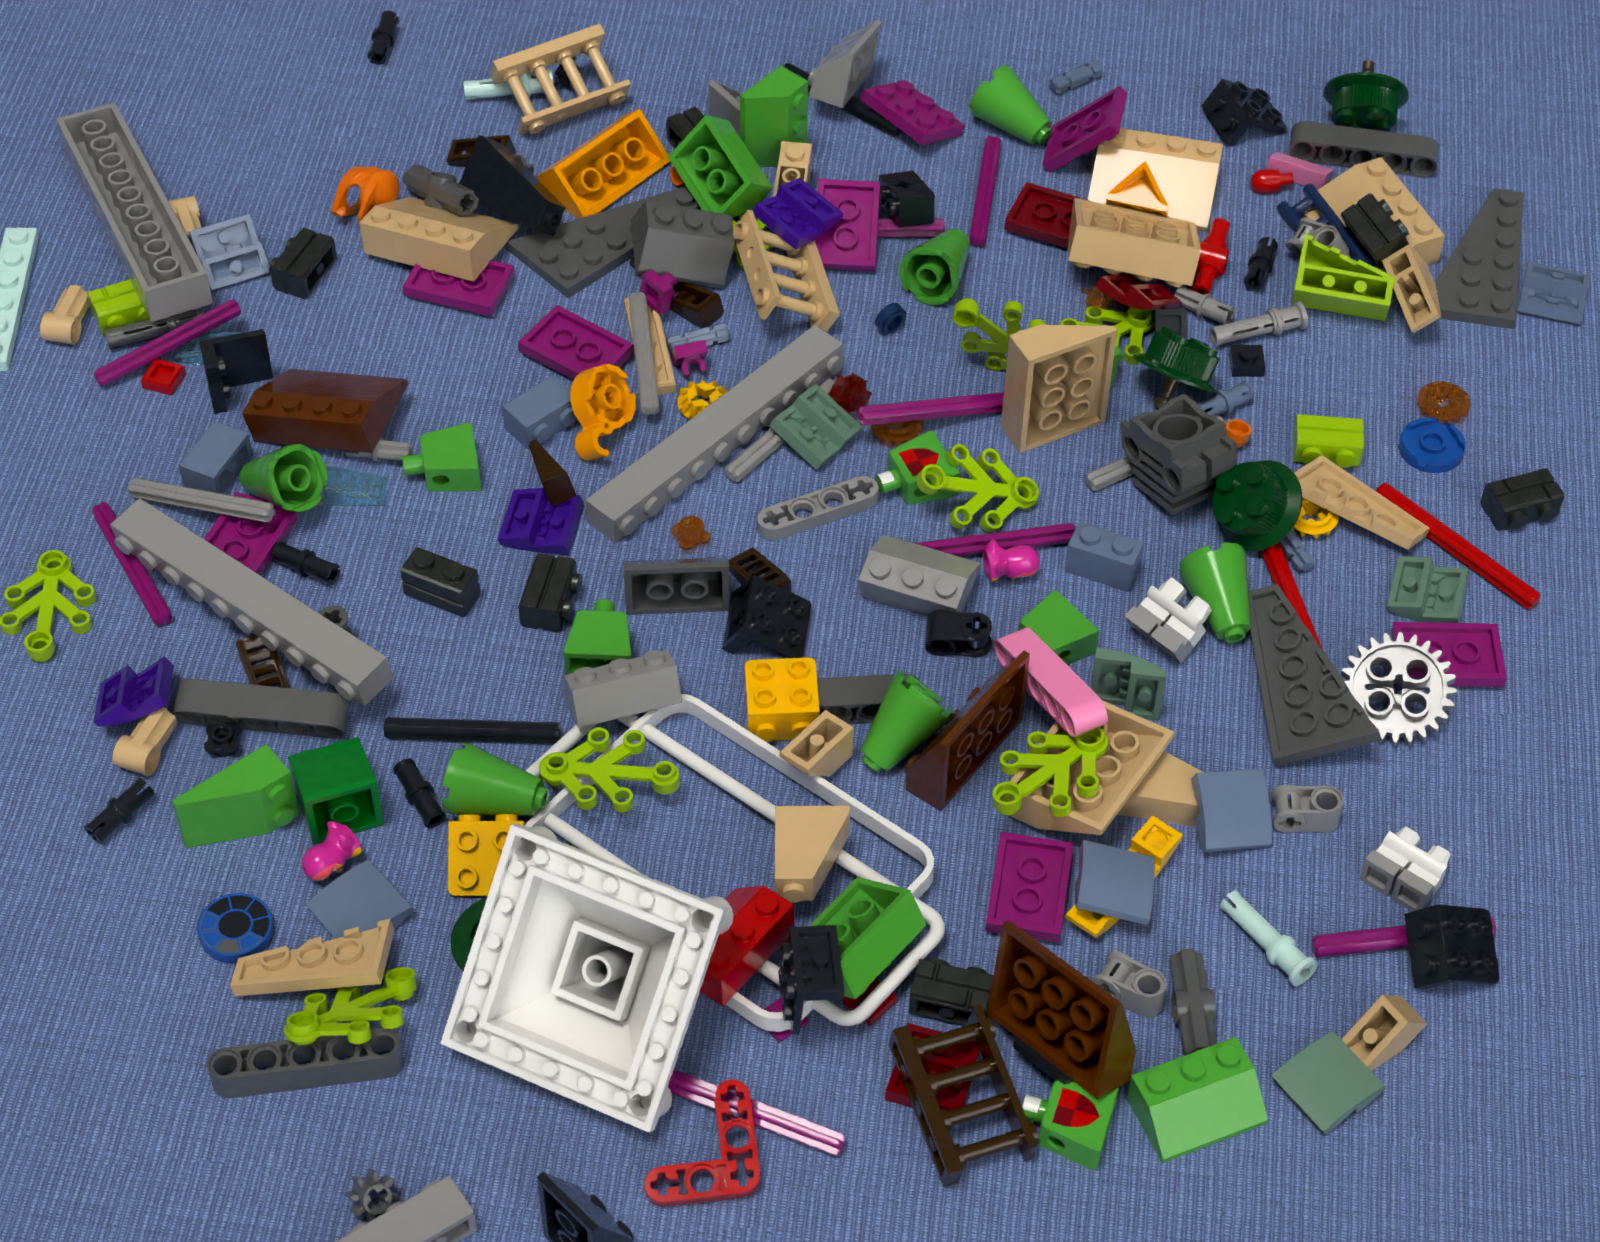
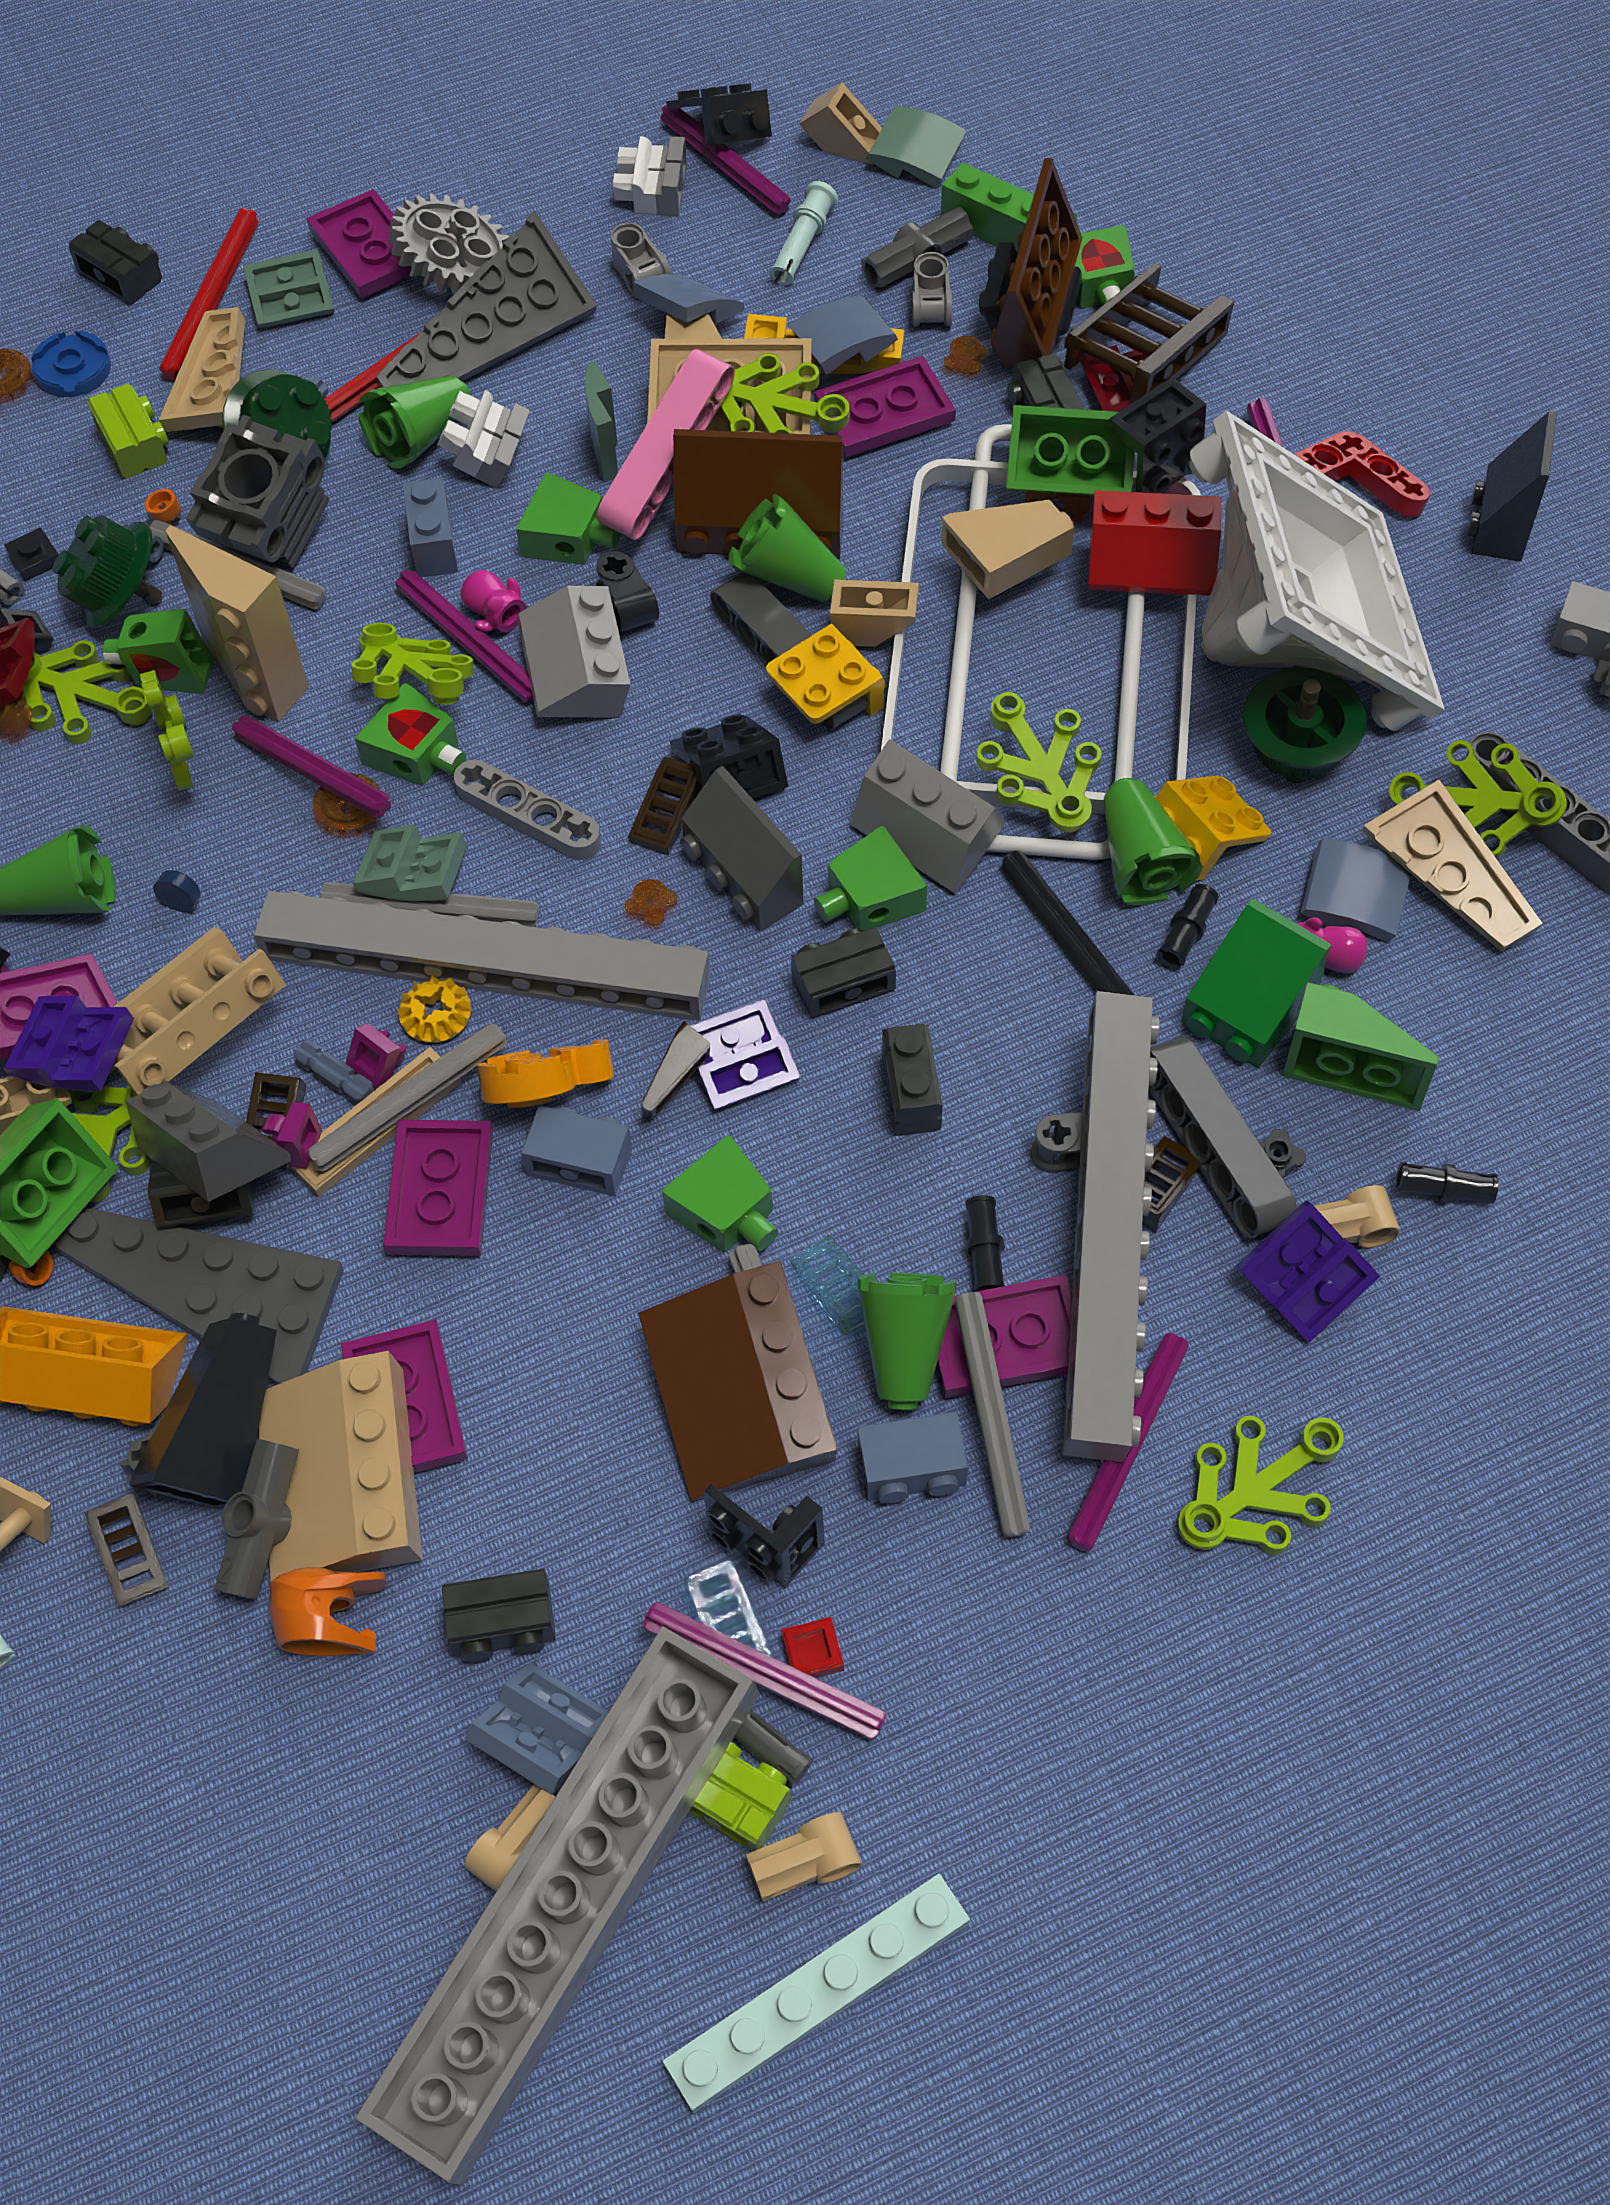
camera: 120 degrees left, 10 degrees up
(235, 927) = (1471, 982): tile -> none
(850, 392) = (335, 858): clear red gear -> none

